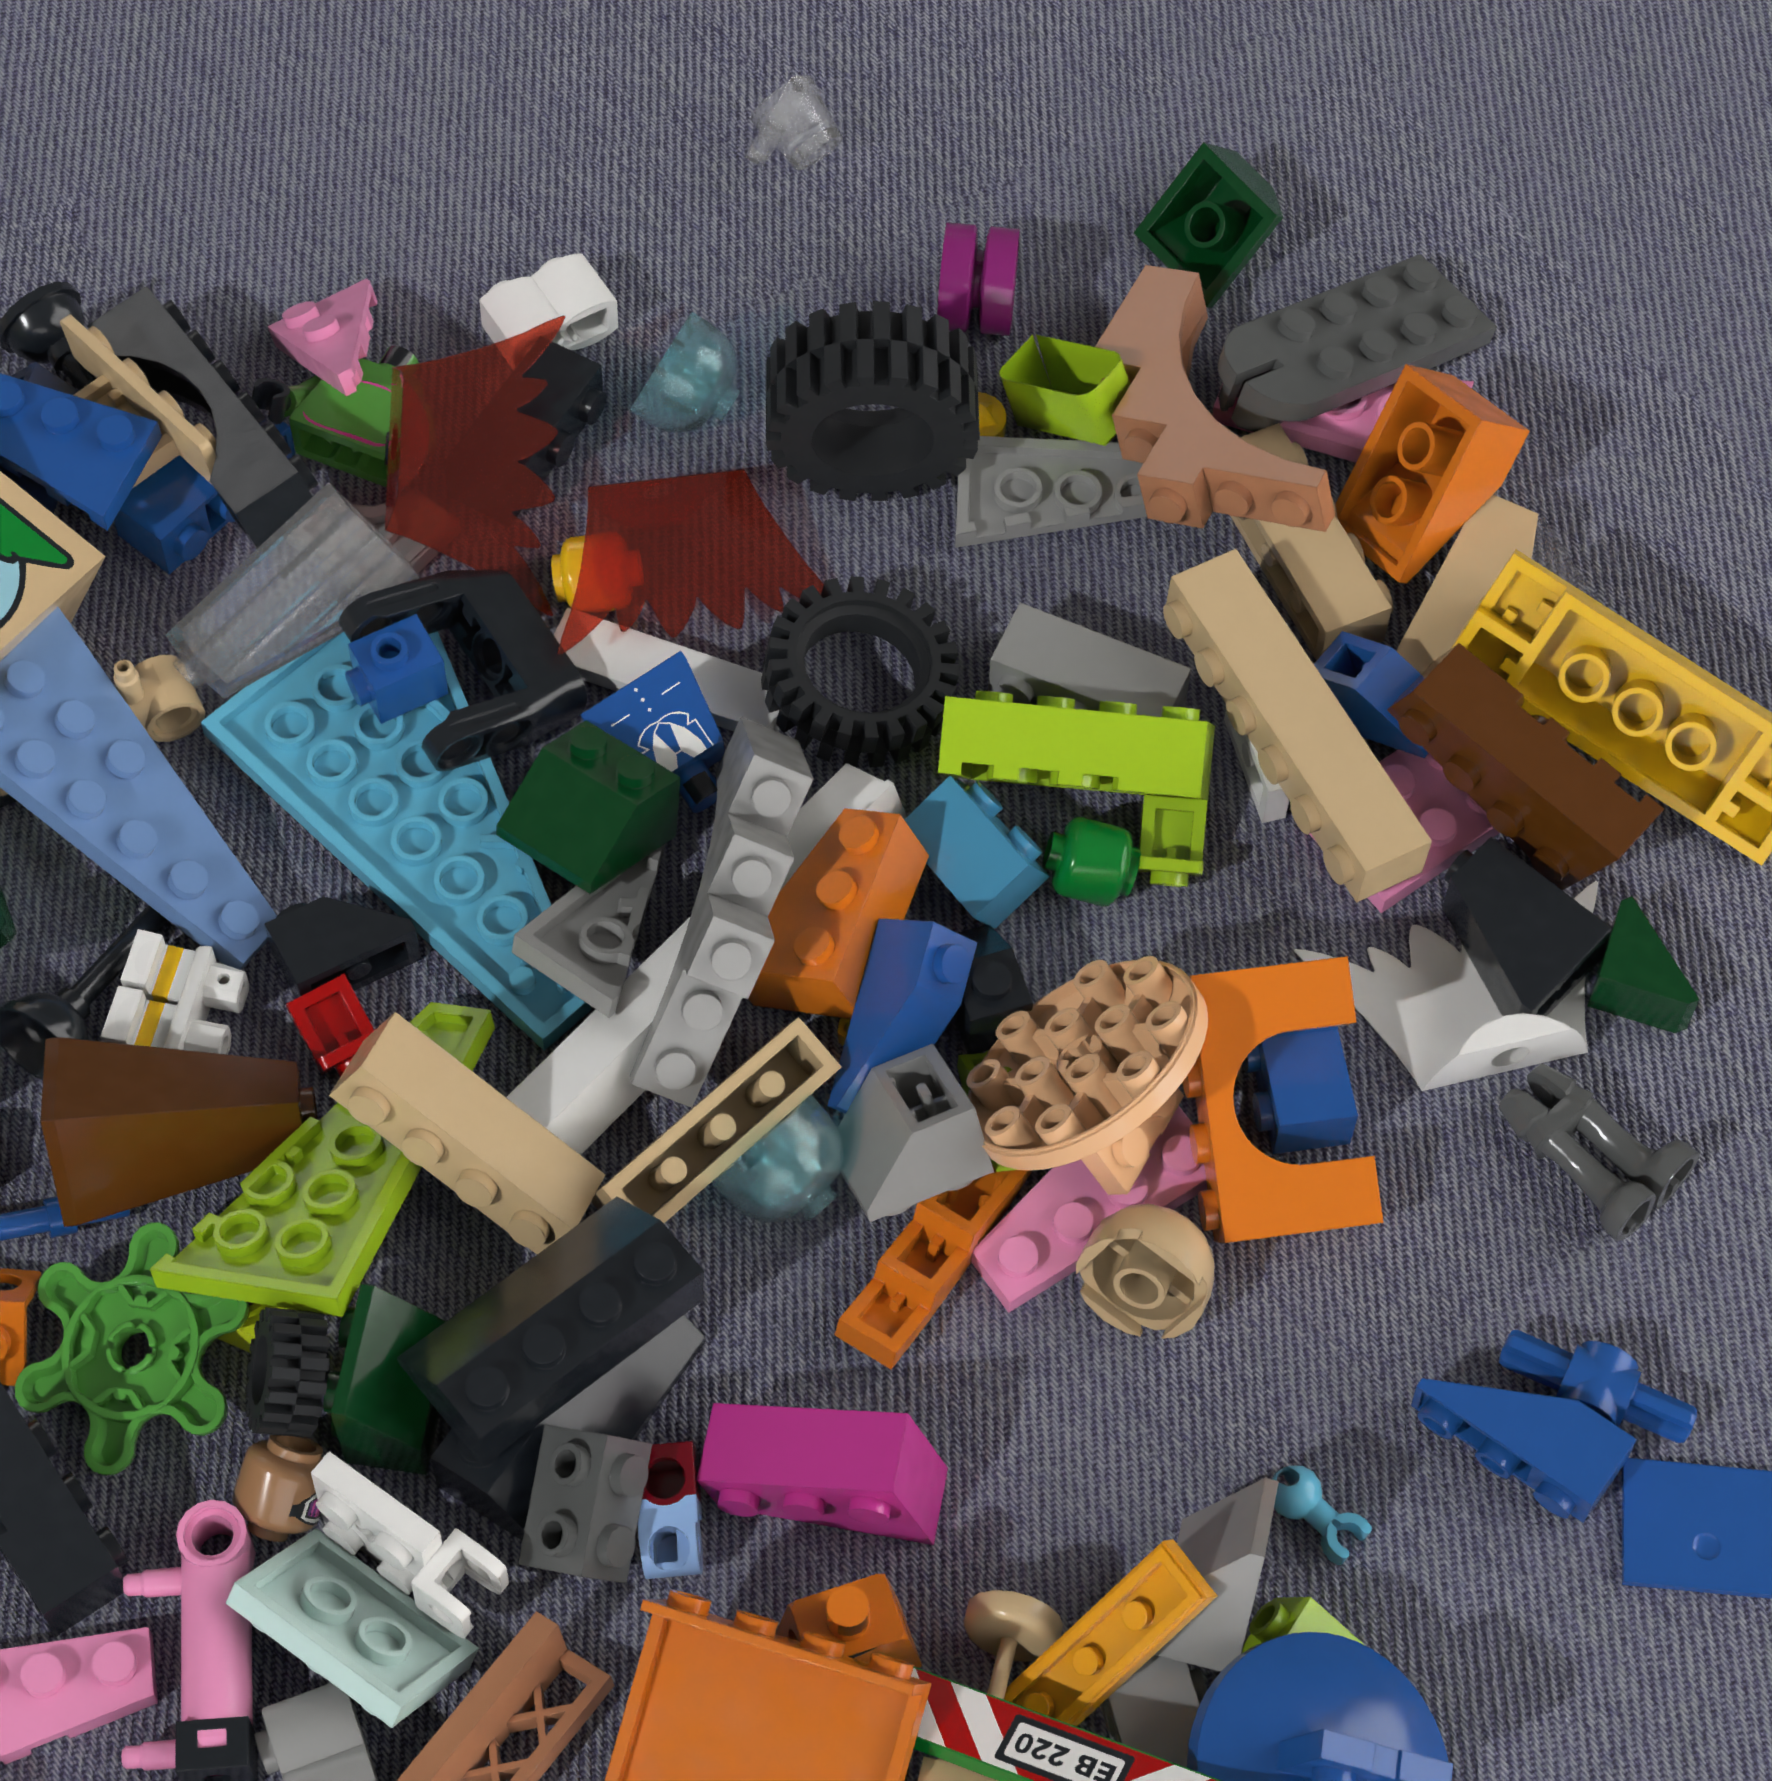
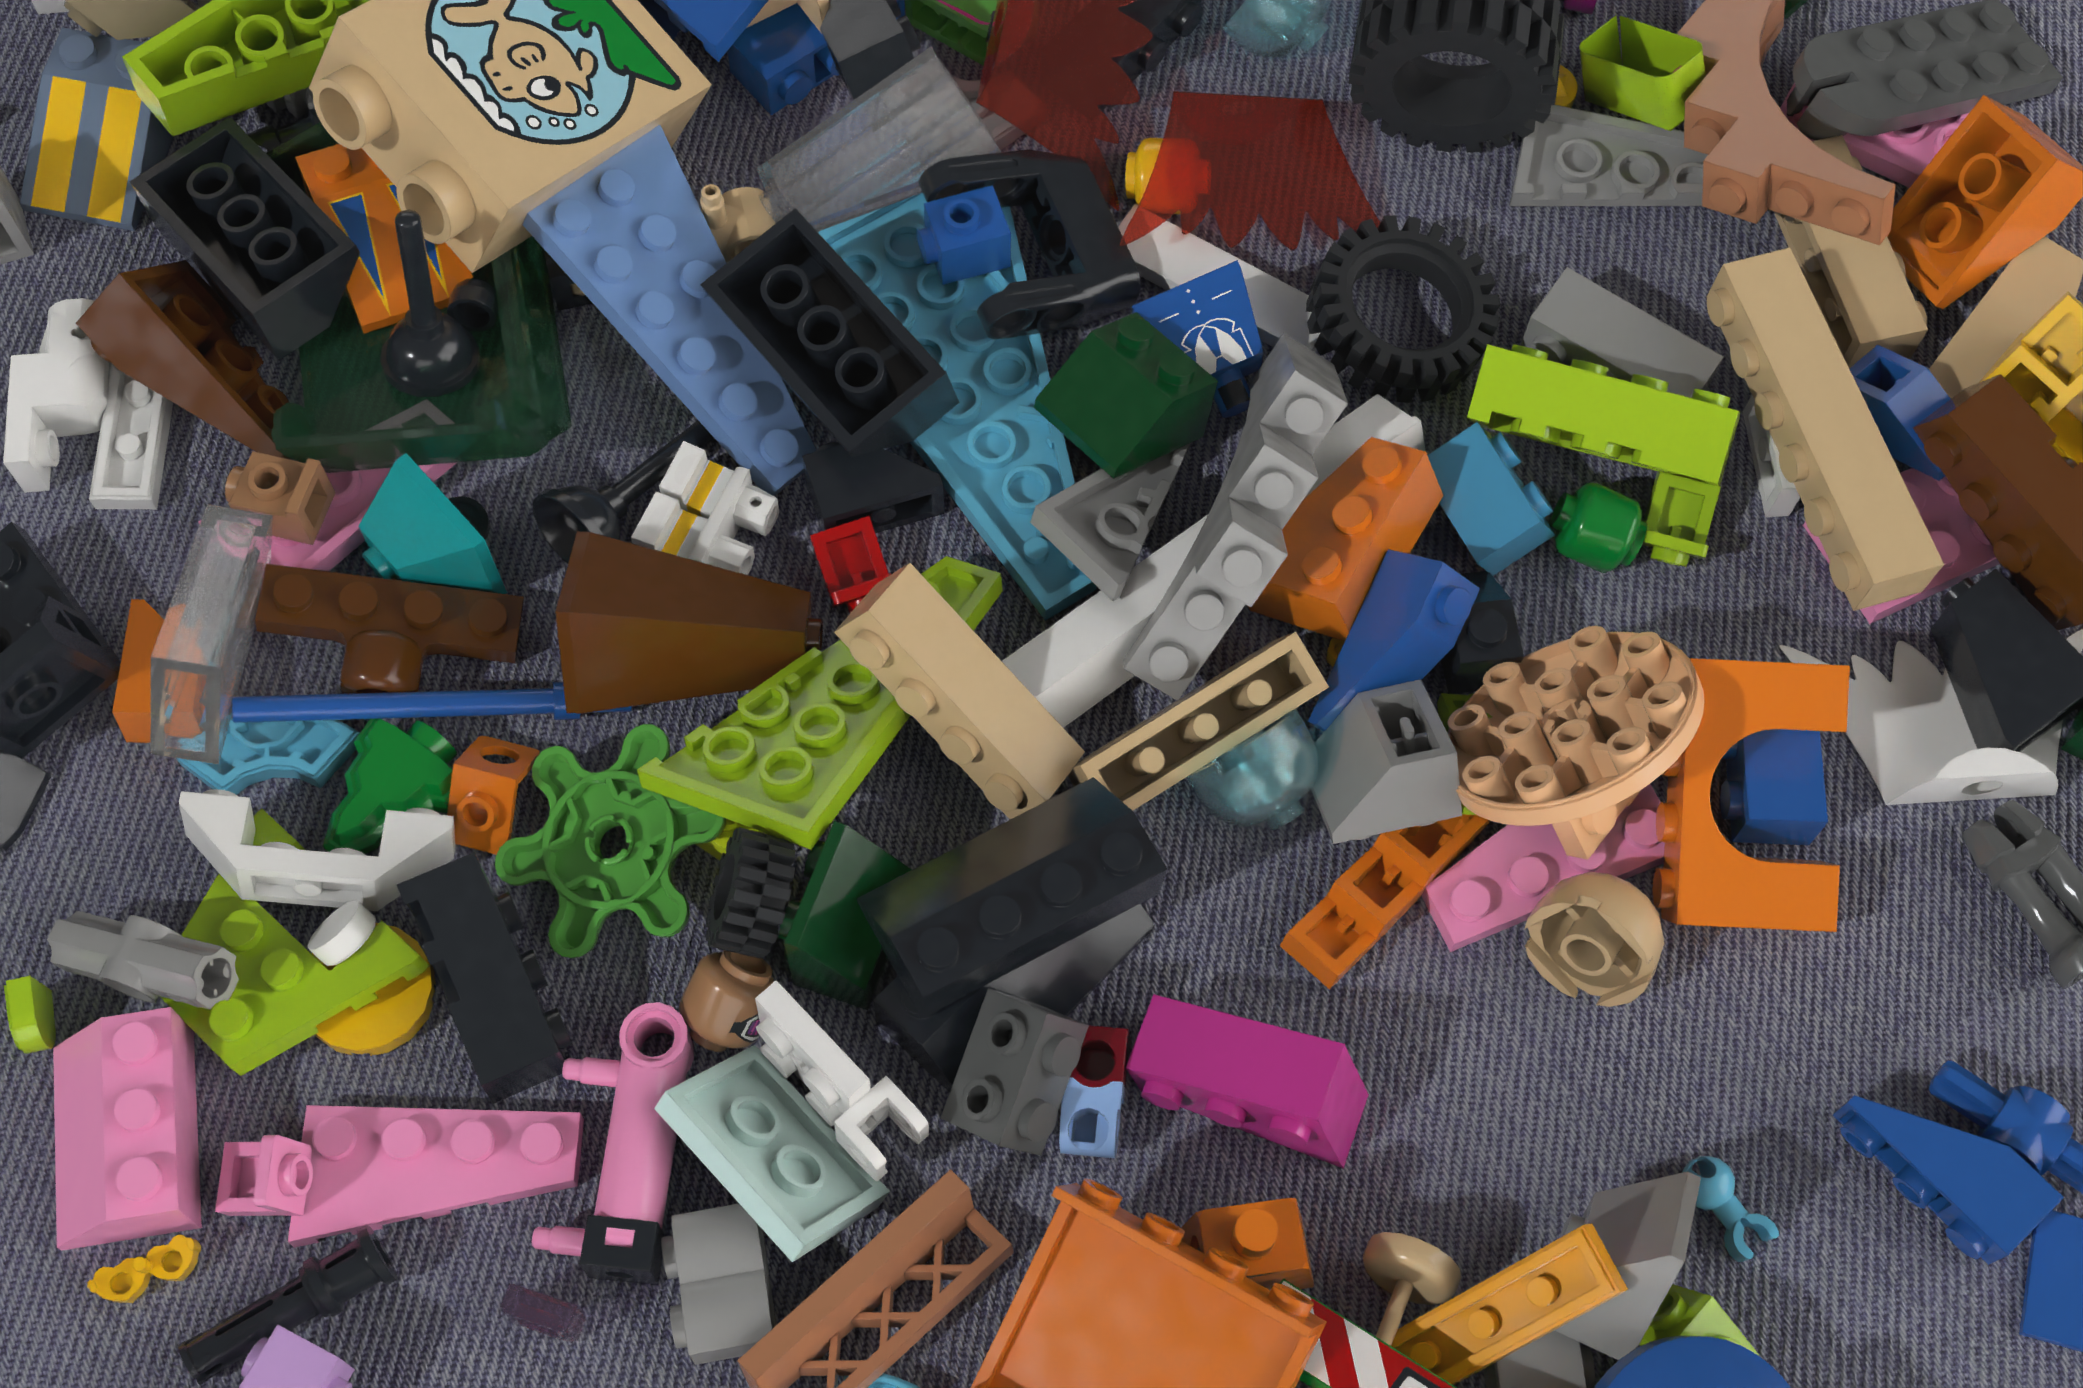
camera: 10 degrees right, 5 degrees up
(275, 798) = (831, 338): none -> black slope

